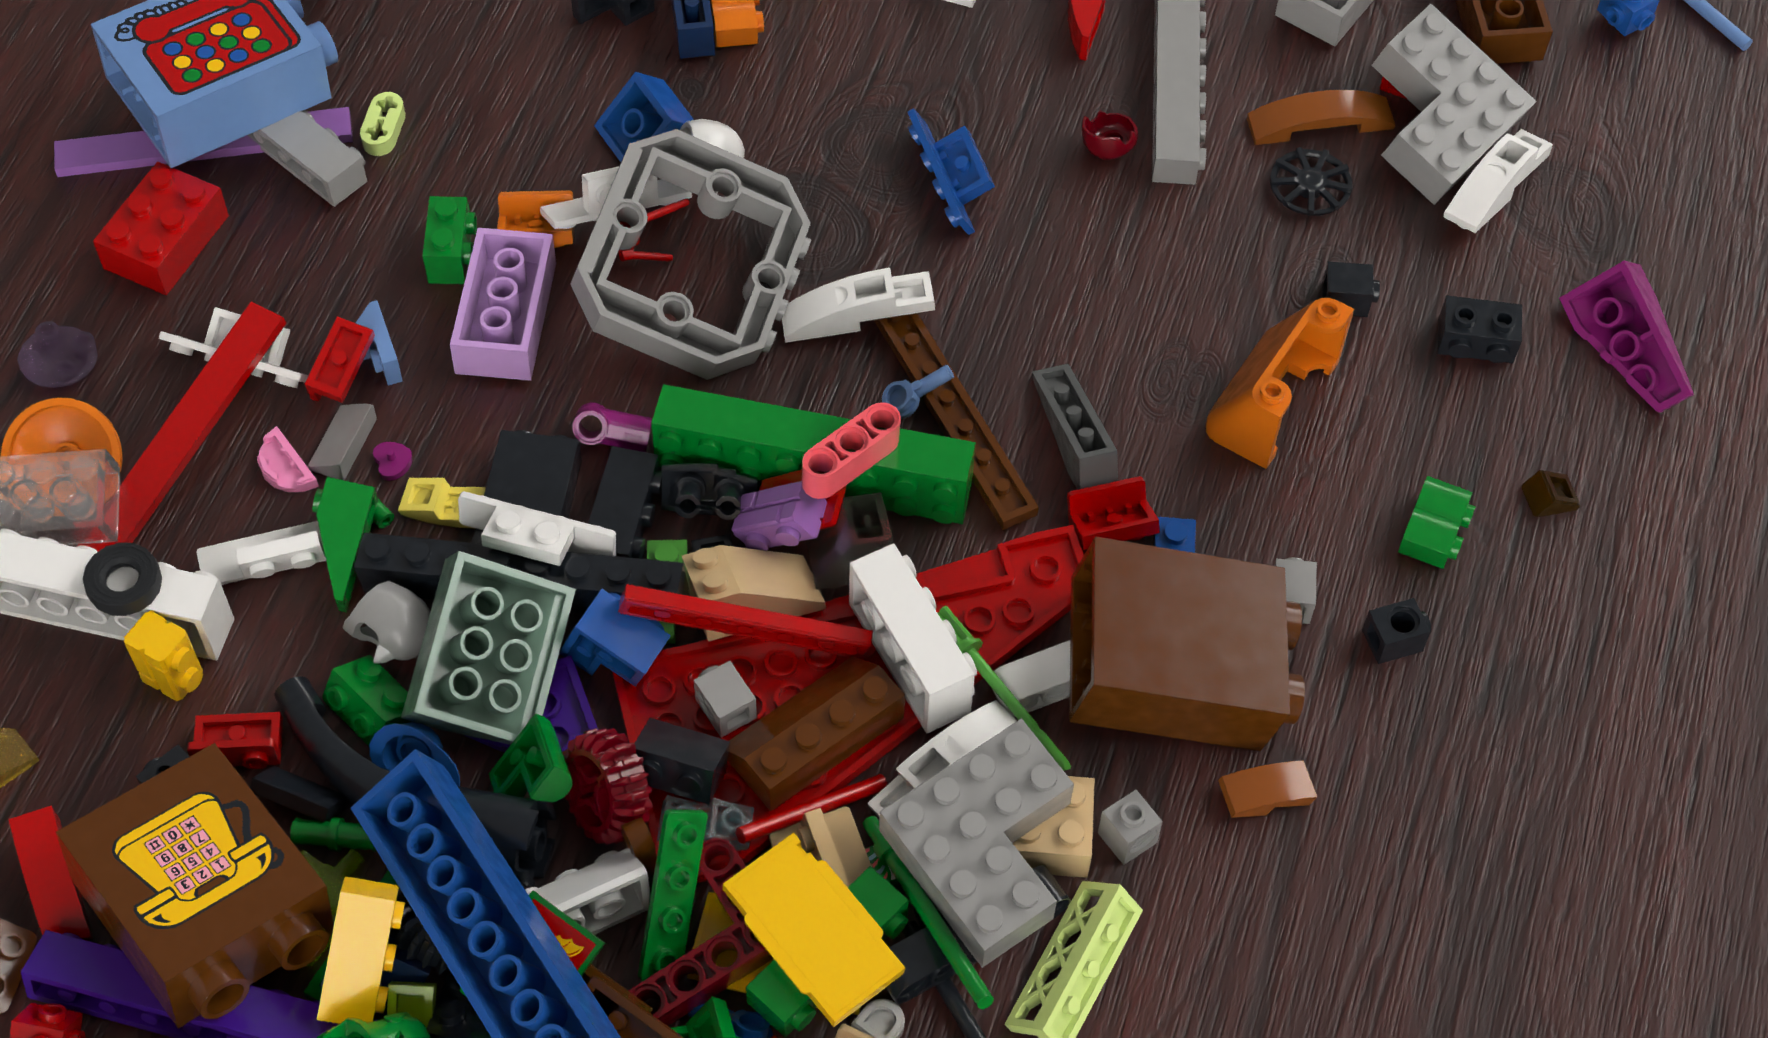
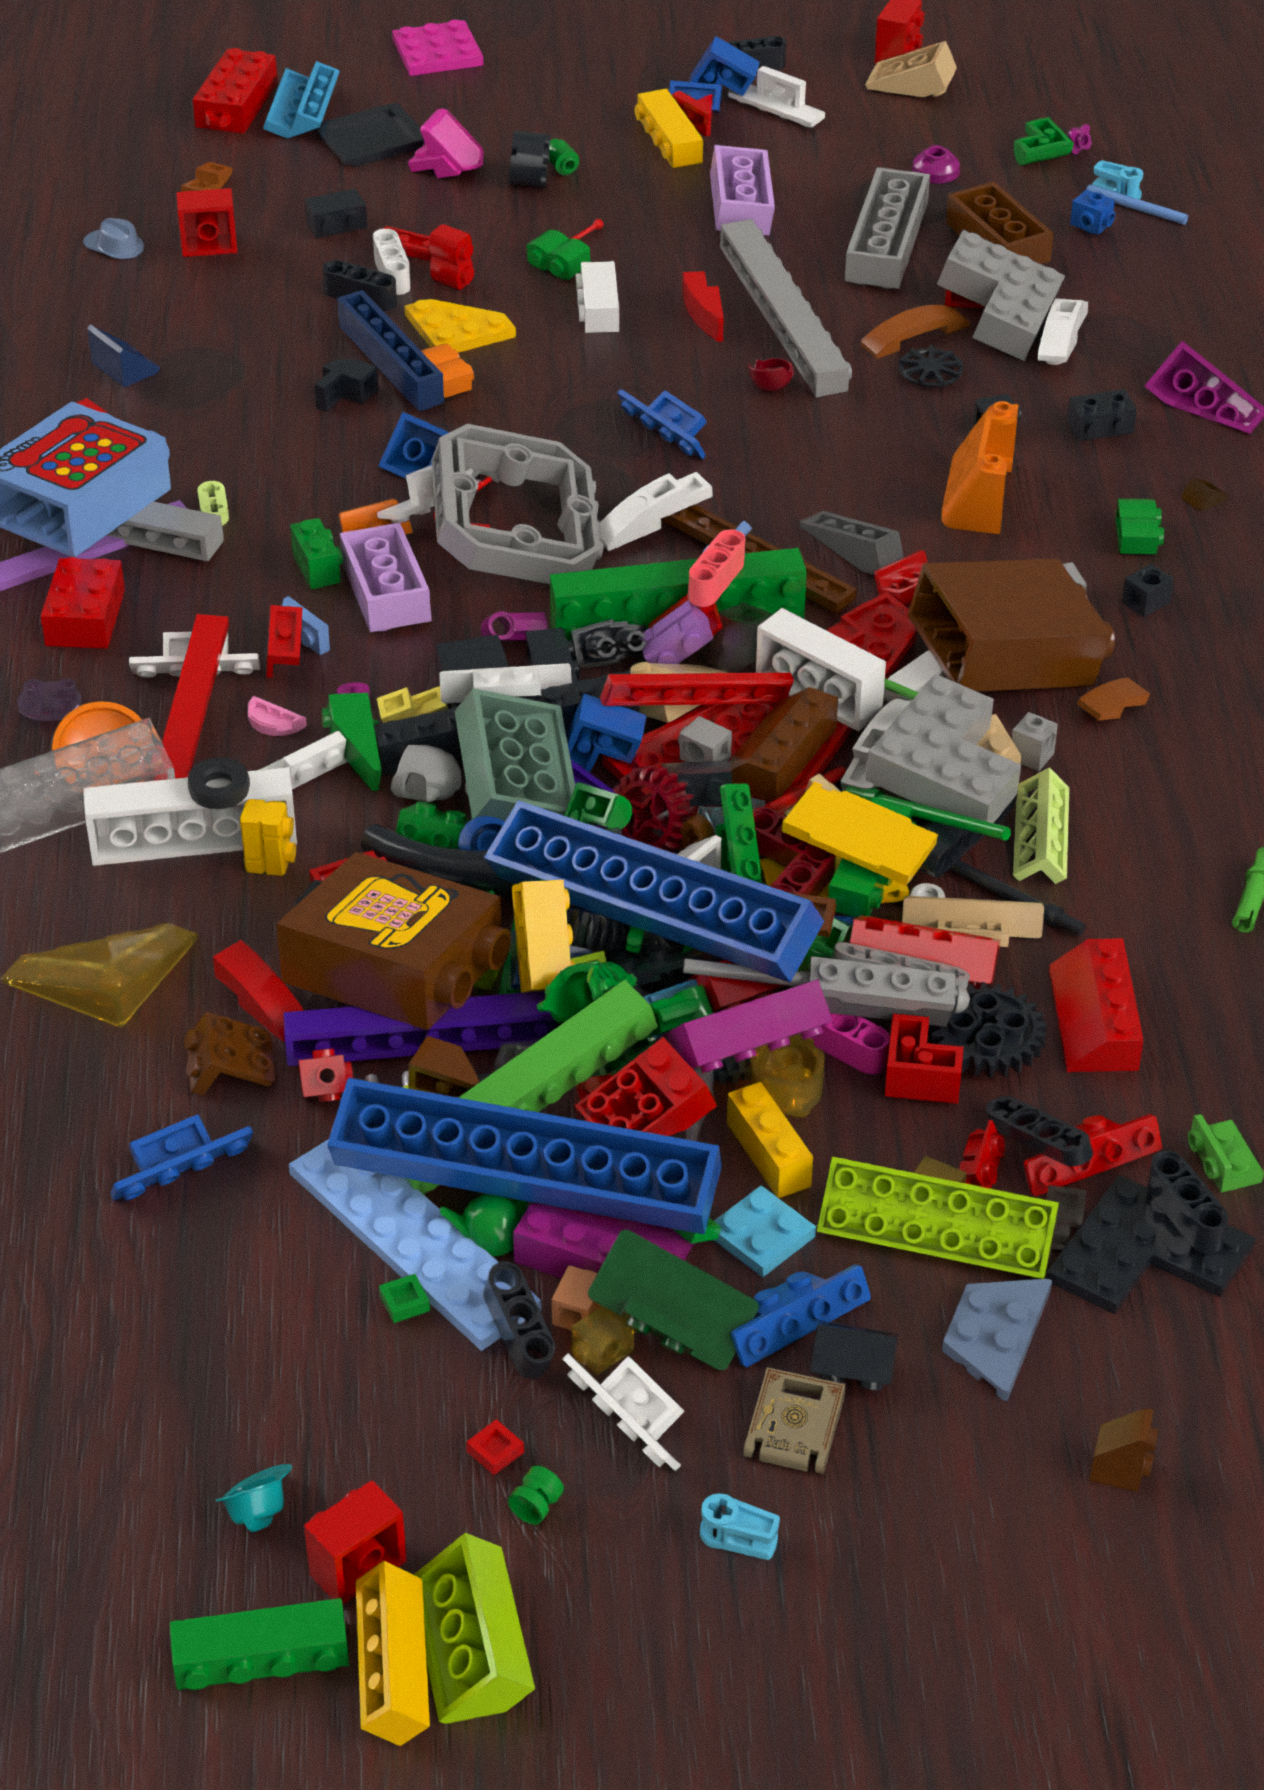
camera: 20 degrees left, 15 degrees down
(343, 440) = (309, 690): light grey slope -> none

